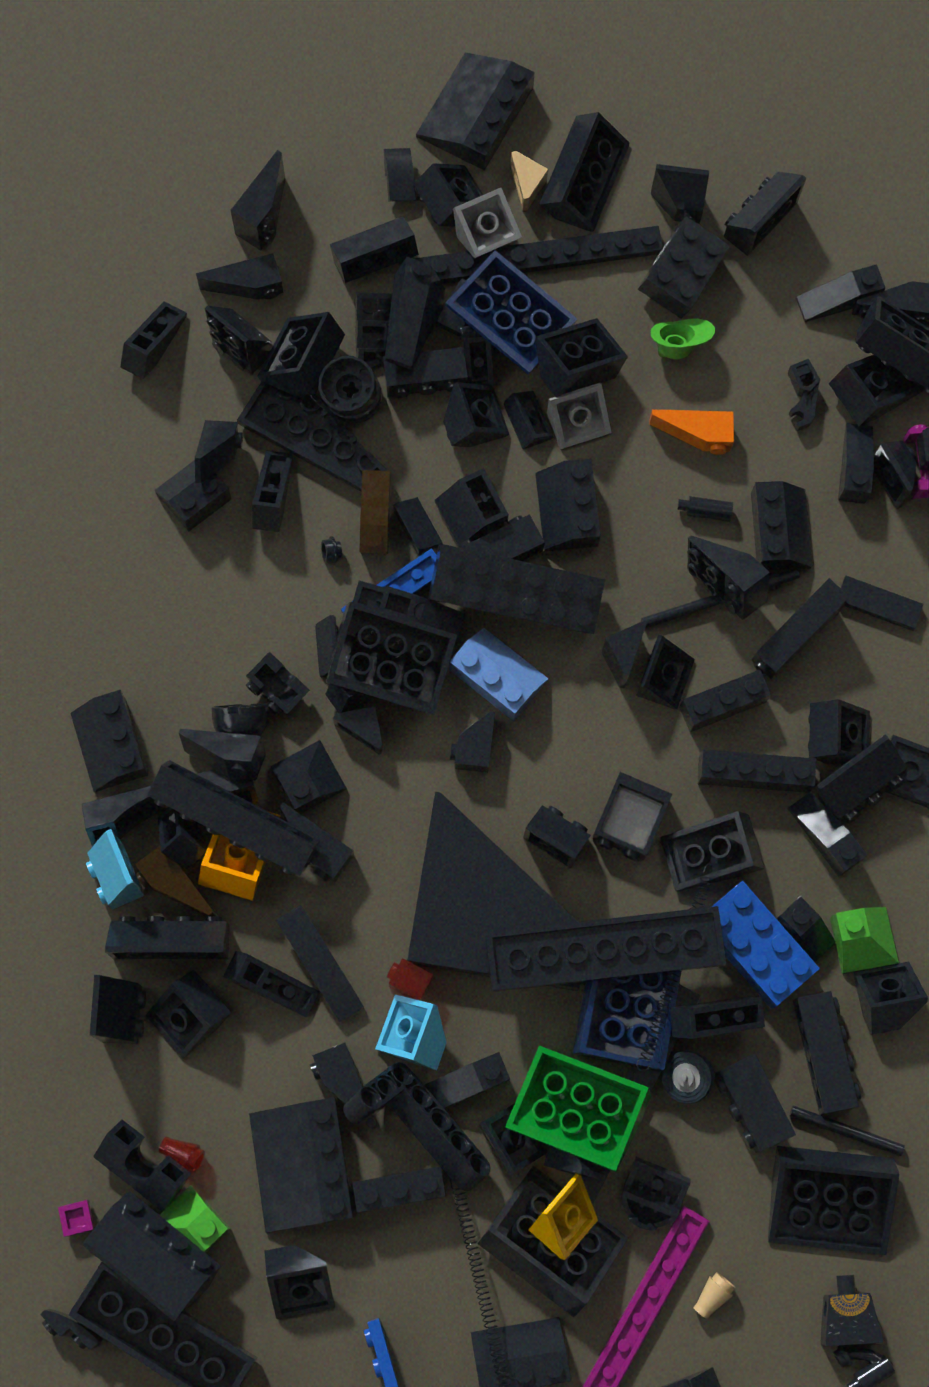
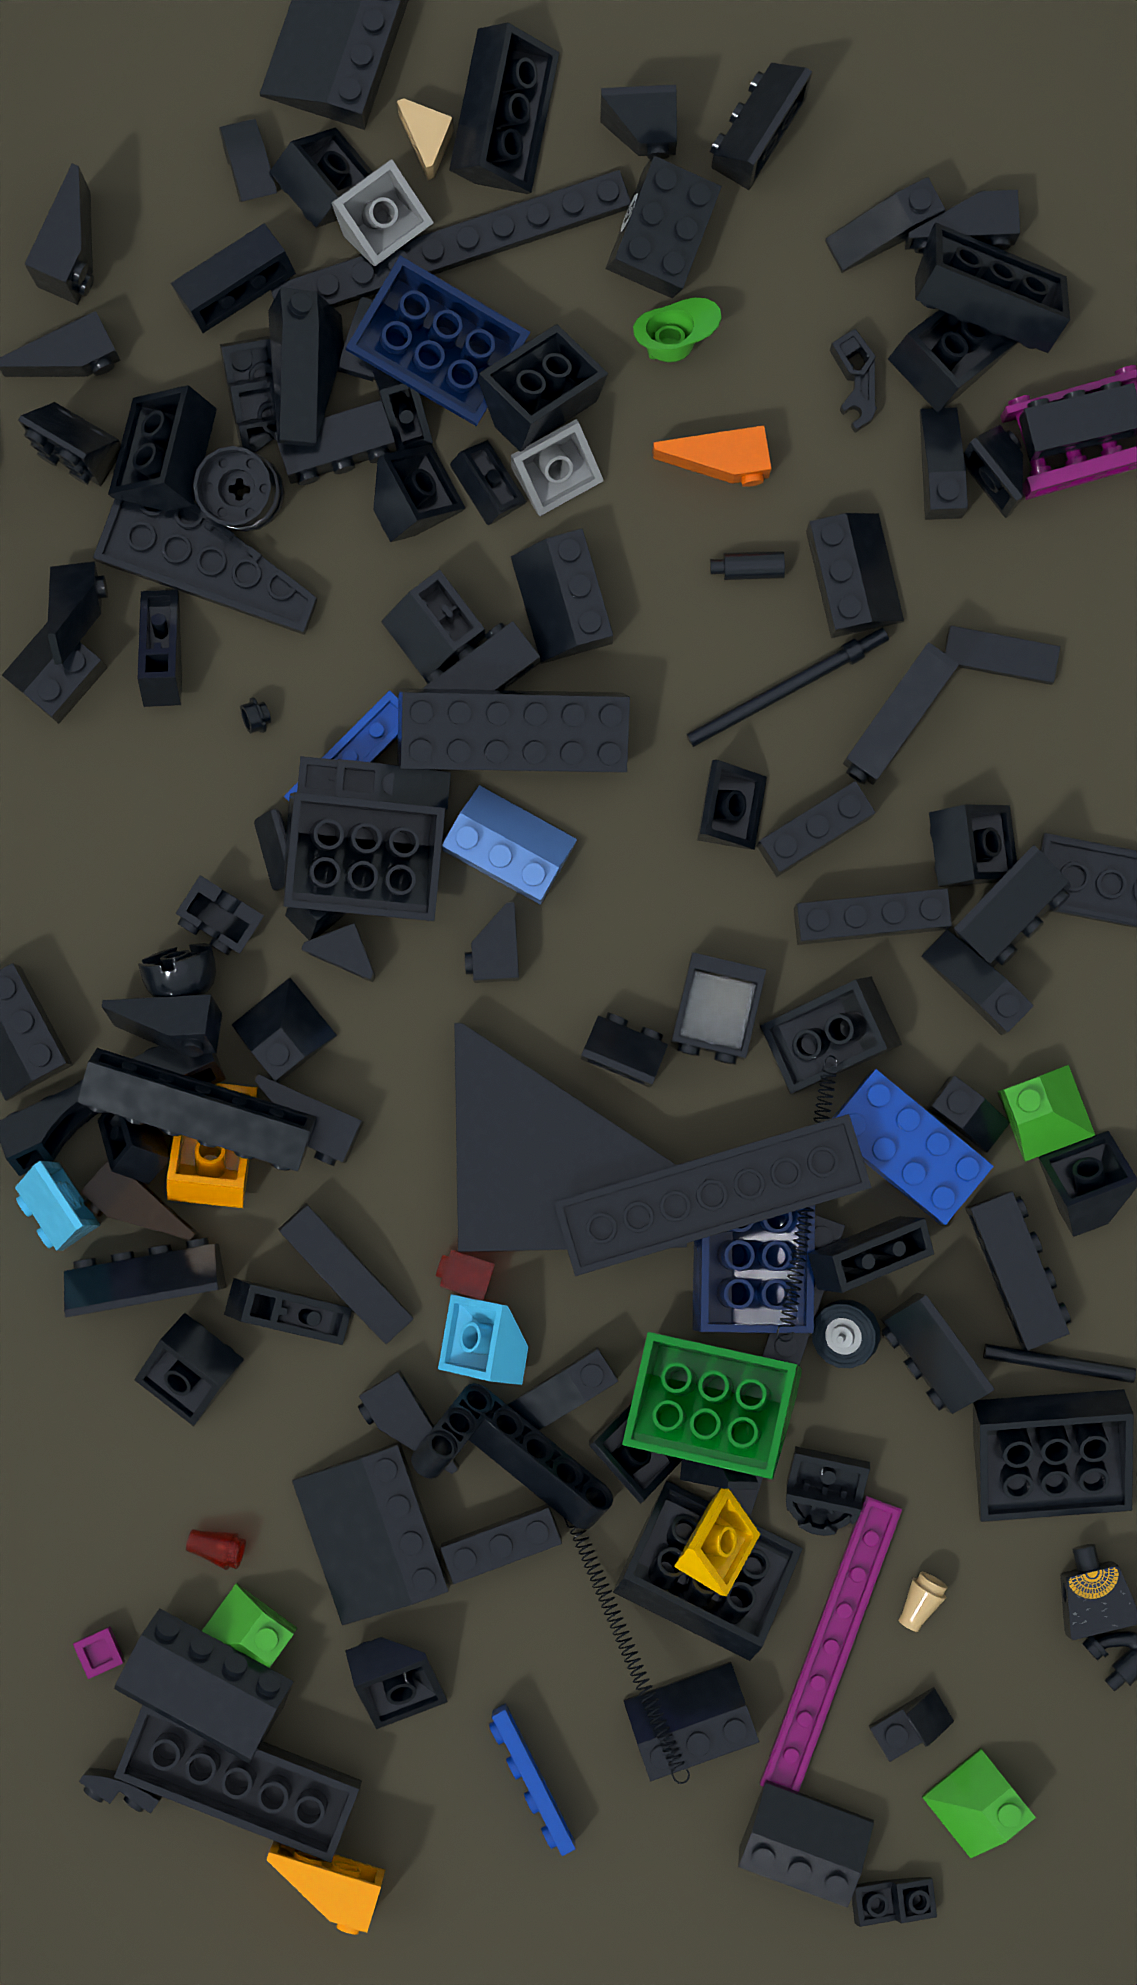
camera: 10 degrees left, 10 degrees up
(116, 1010) = (96, 1386): black slope -> none
(123, 1157) = (143, 1567): black arch -> none
(374, 512) = (304, 655): dark brown slope -> none
(417, 525) = (365, 660): black slope -> none
(621, 651) = (669, 788): black slope -> none
(729, 575) = (794, 658): black slope -> none

